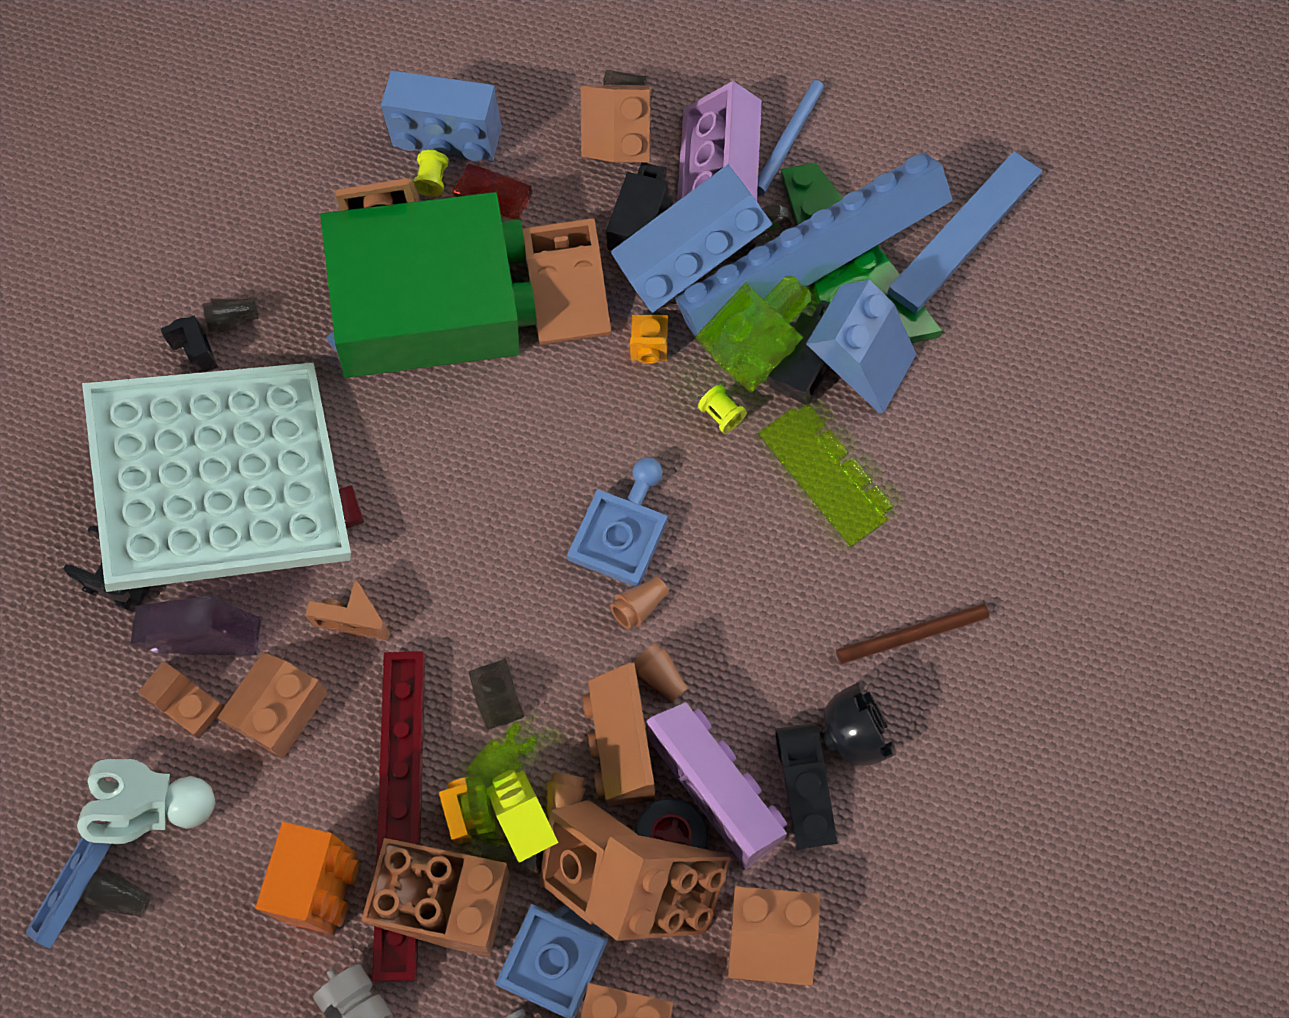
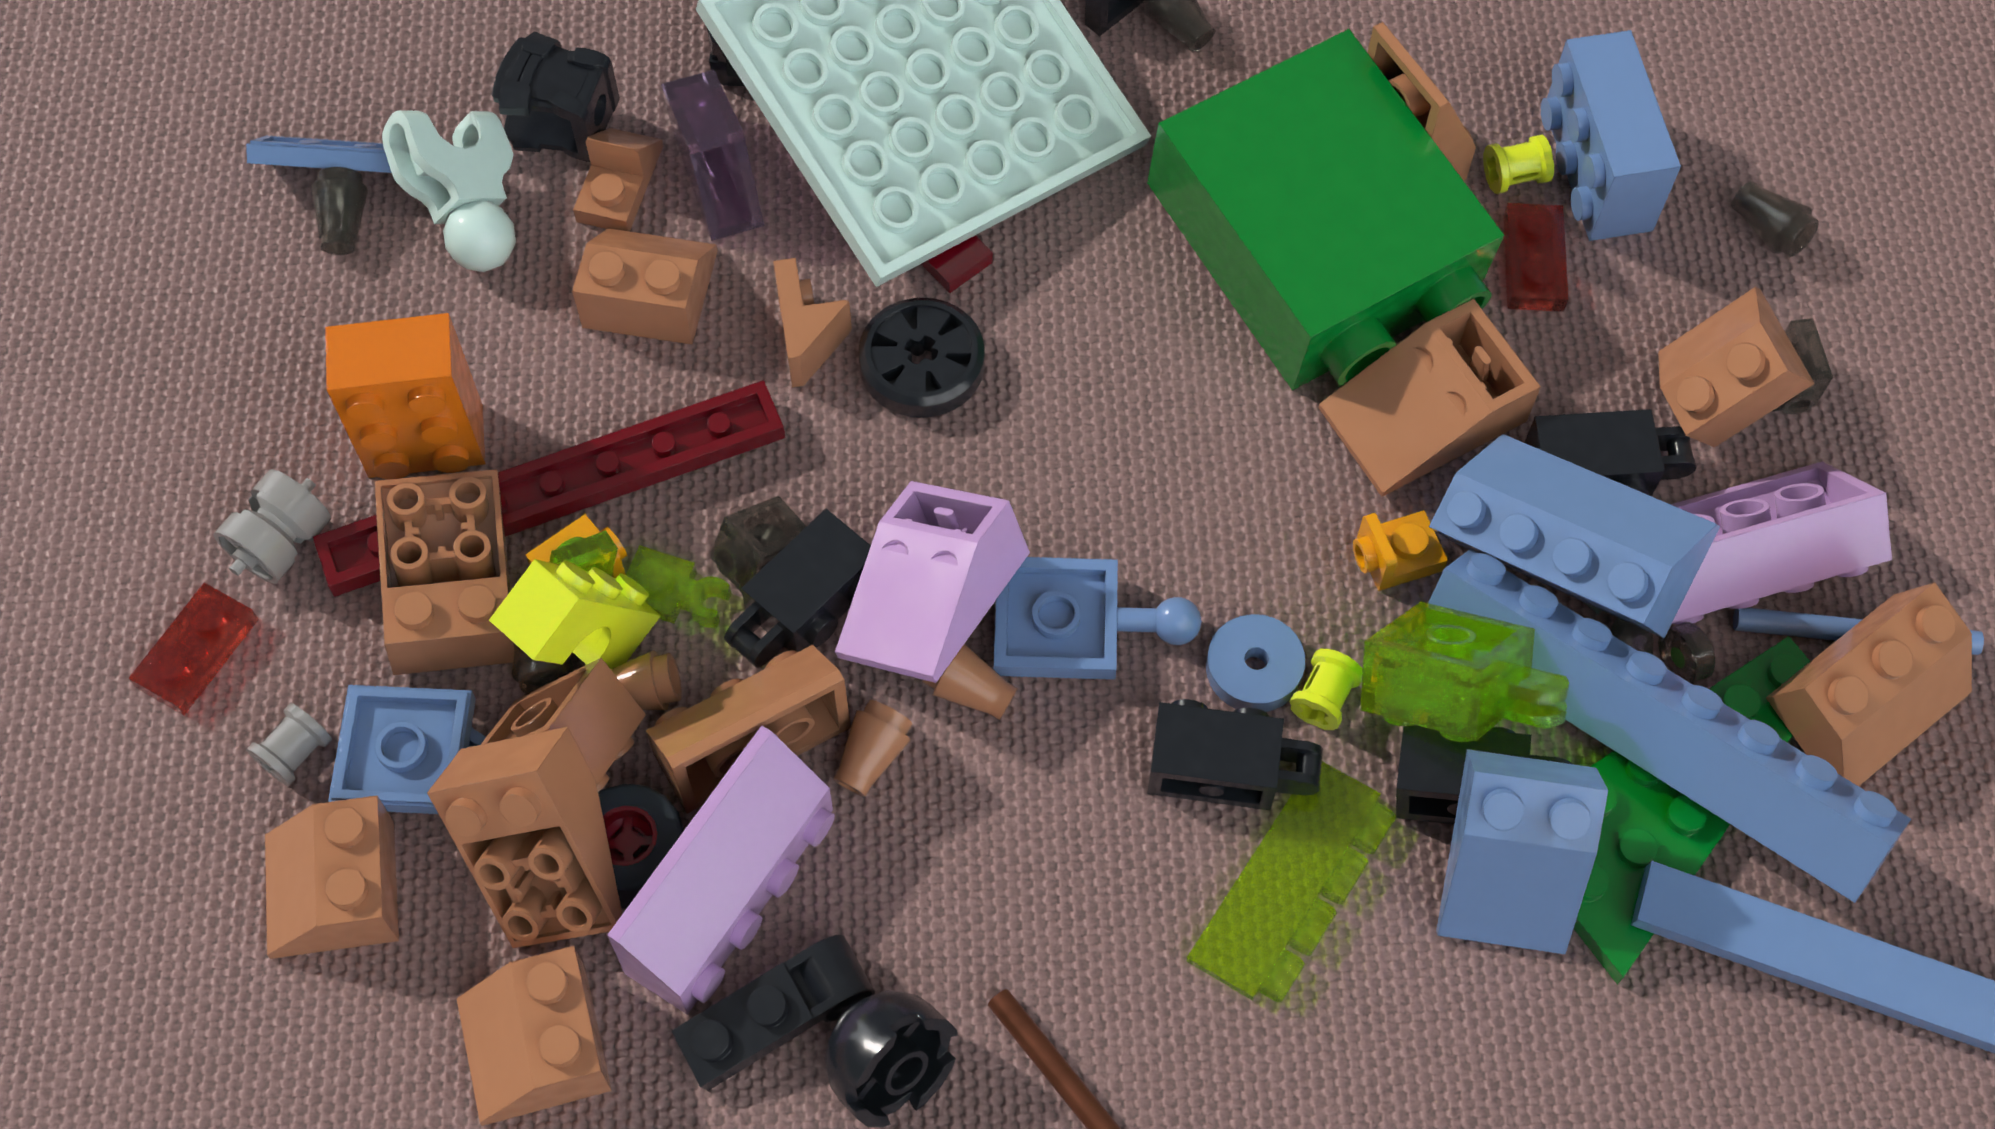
camera: 65 degrees right, 5 degrees down
(105, 716) = (554, 95): none -> black piece
(403, 576) = (934, 384): none -> black wheel
(527, 62) = (1778, 220): none -> clear smoke cone
(542, 676) = (800, 591): none -> black brick
(576, 597) = (930, 579): none -> lavender slope
(691, 457) = (1259, 638): none -> medium blue piece
(742, 478) = (1228, 756): none -> black brick
(826, 138) = (1880, 683): none -> nougat slope

